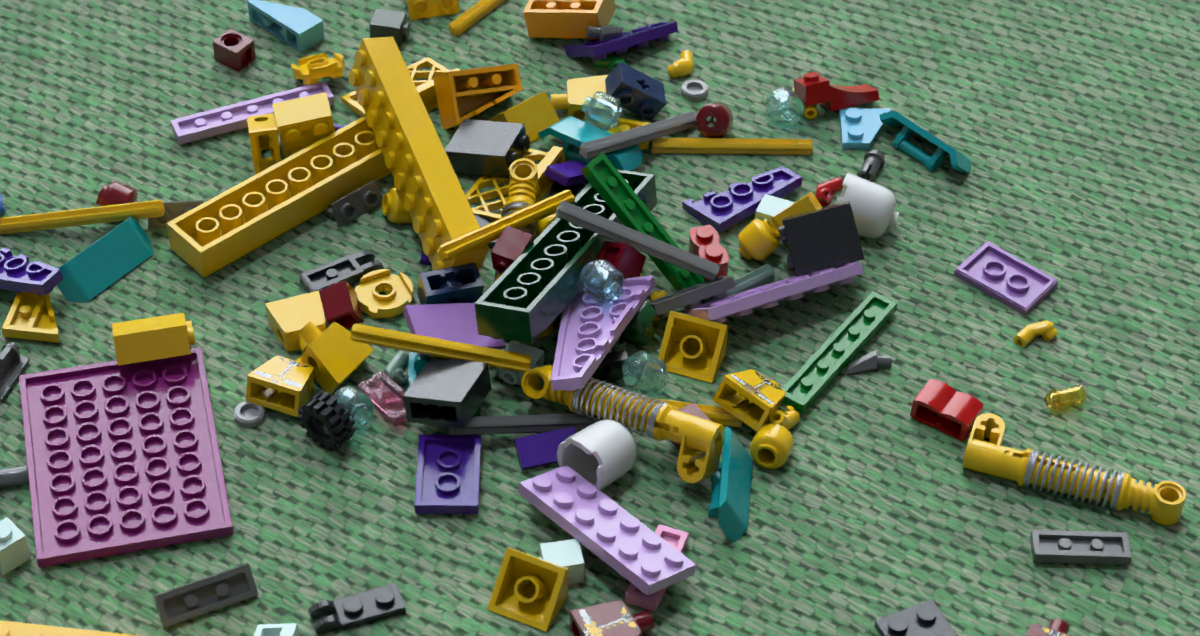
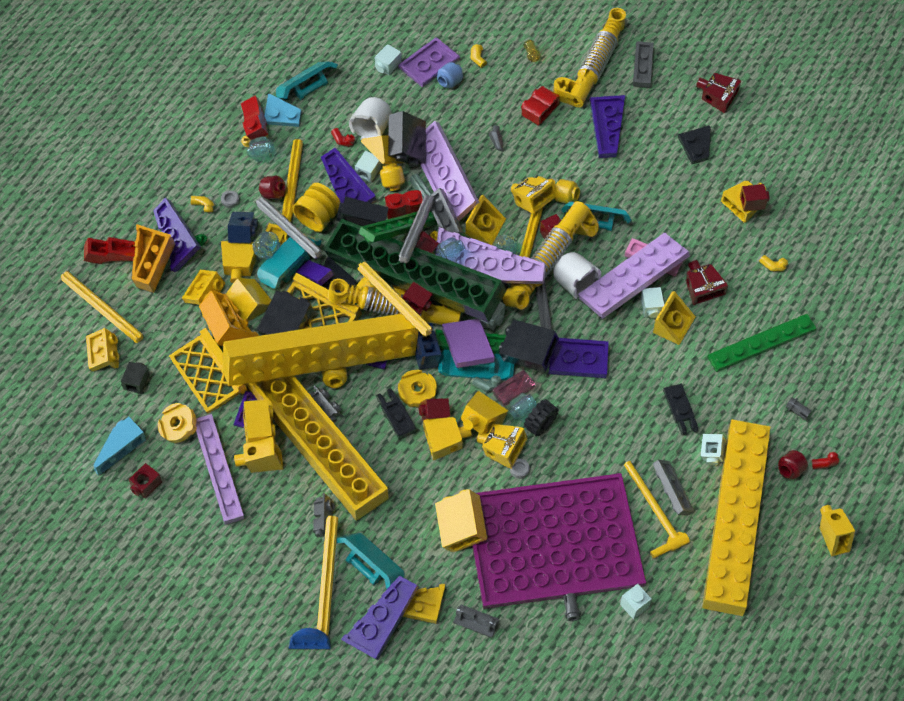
camera: 85 degrees left, 15 degrees up
(115, 194) = (310, 553): dark red head -> none
(116, 605) = (675, 539): none -> yellow bar
(440, 347) = (497, 345): yellow axle -> none
(539, 76) = (201, 286): none -> yellow bracket
(540, 448) = (560, 304): dark purple tile -> none
(604, 32) = (179, 238): dark grey bar -> none
(668, 197) = (361, 212): none -> black window
(681, 159) = (316, 207): none -> yellow wheel
(838, 351) = (487, 150): plate -> none
(872, 163) = (323, 112): dark grey pin -> none
(934, 499) = (607, 120): none -> dark purple wing
(978, 295) = (449, 75): none -> medium blue head
(989, 224) = (387, 59): none -> light aqua brick

